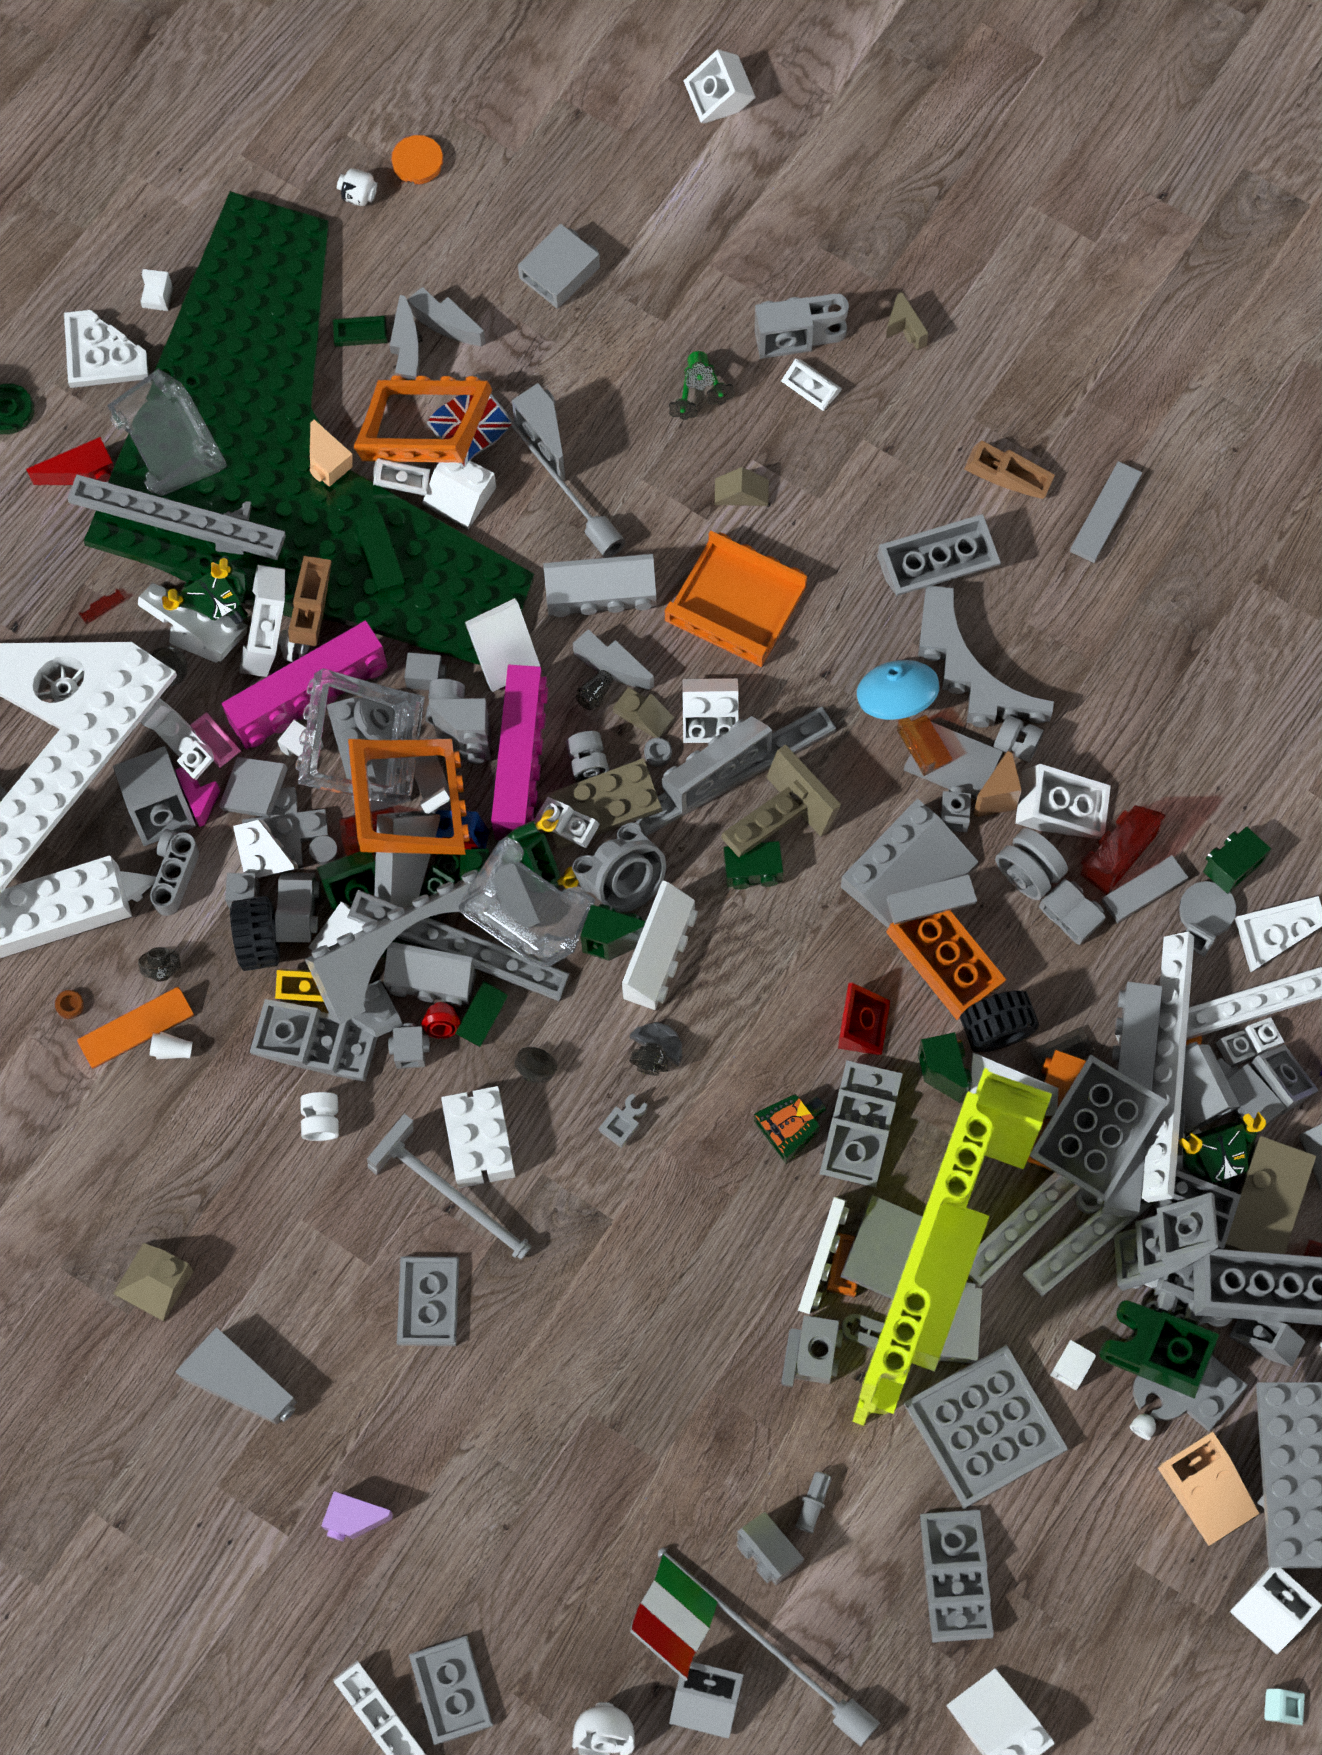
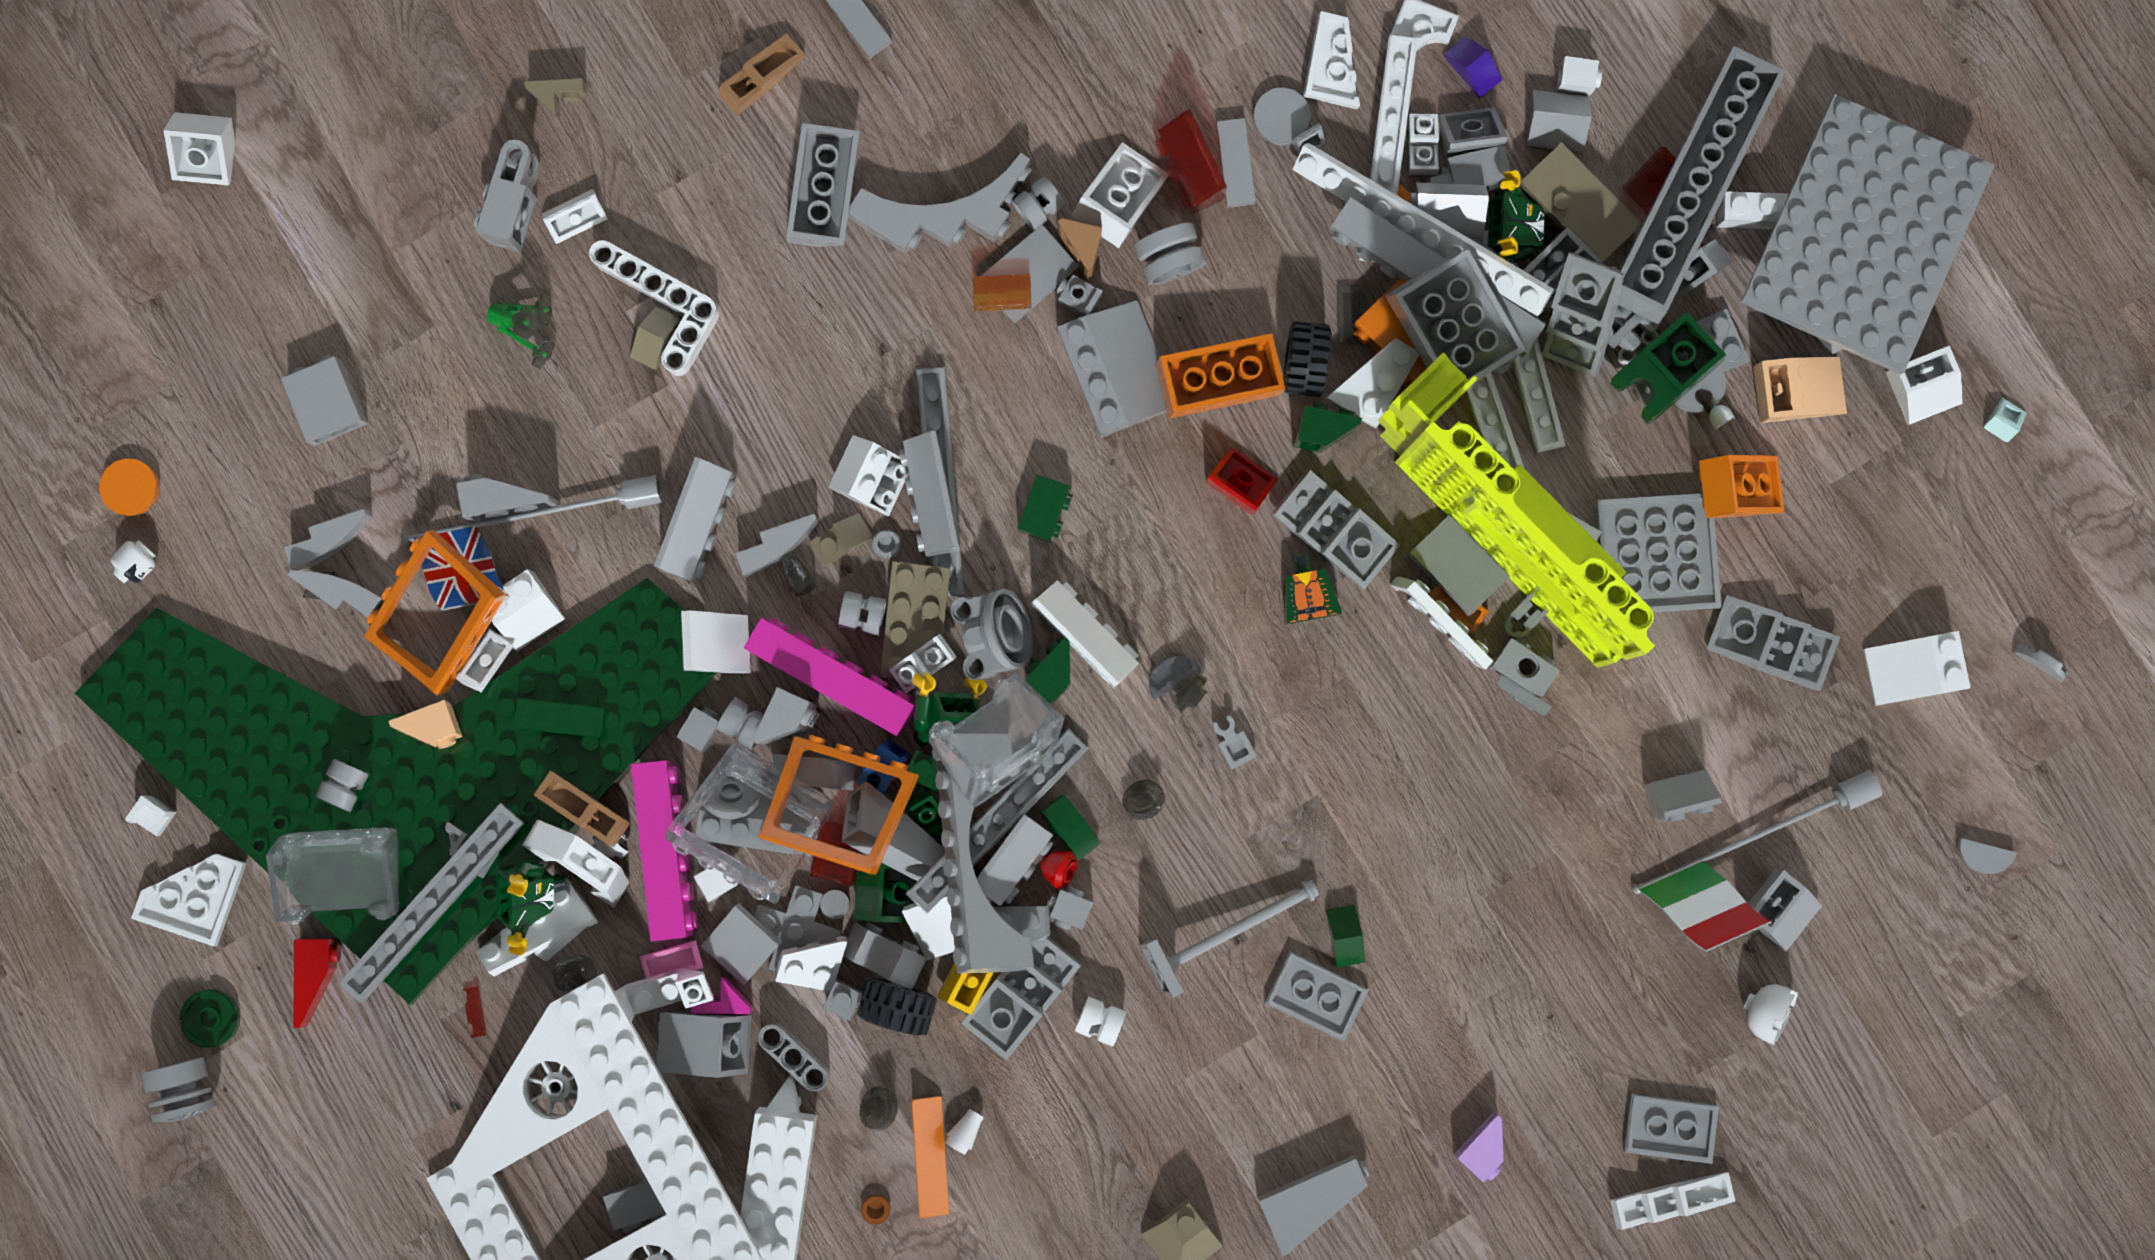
camera: 70 degrees left, 15 degrees up
(164, 841) = (757, 1051): light grey tile -> none
(244, 409) = (341, 785): none -> light grey wheel
(360, 331) = (296, 630): dark green tile -> none
(435, 800) = (849, 779): white tile -> none
(478, 1137) = (1188, 883): white piece -> none
(494, 1301) = (1345, 936): none -> dark green slope
(737, 598) = (767, 396): orange panel -> none
(783, 480) = (664, 295): none -> white beam
(799, 795) = (999, 434): dark tan piece -> none
(813, 1502) = (1654, 736): light grey axle -> none
(898, 689) = (948, 293): medium azure dish -> none
(931, 899) = (1169, 363): light grey tile -> none
(1072, 911) = (1228, 238): light grey brick -> none
(1073, 1365) = (1641, 450): white panel -> none
(1088, 1472) = (1741, 486): none -> orange slope
(1236, 859) = (1252, 66): dark green brick -> none

